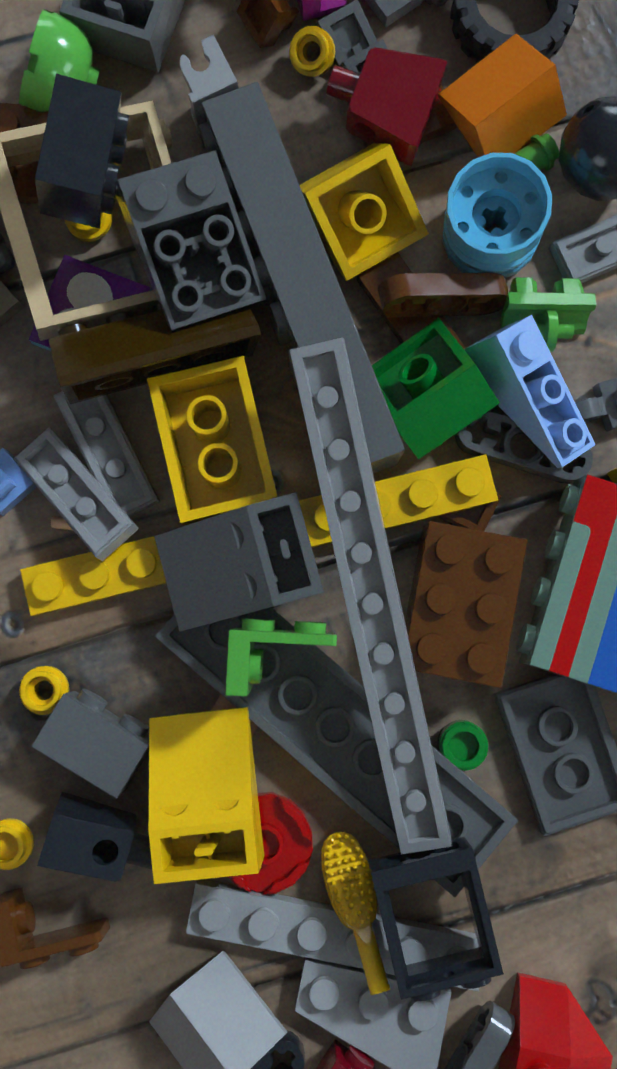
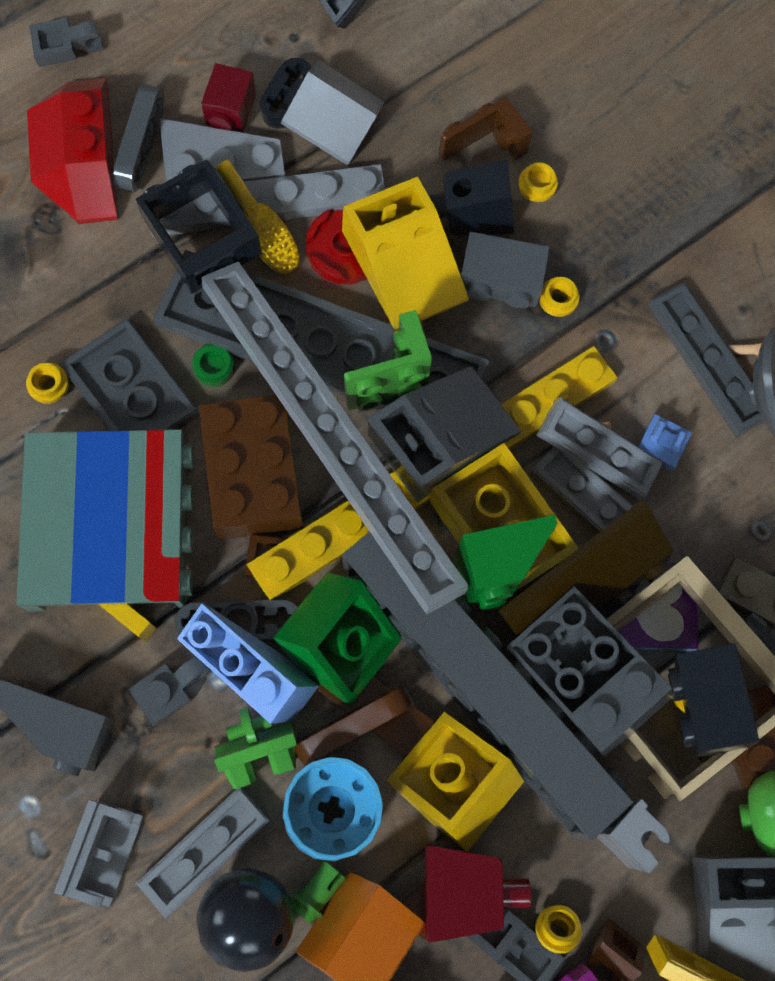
camera: 155 degrees right, 10 degrees down
(236, 372) = (500, 558): none -> green slope

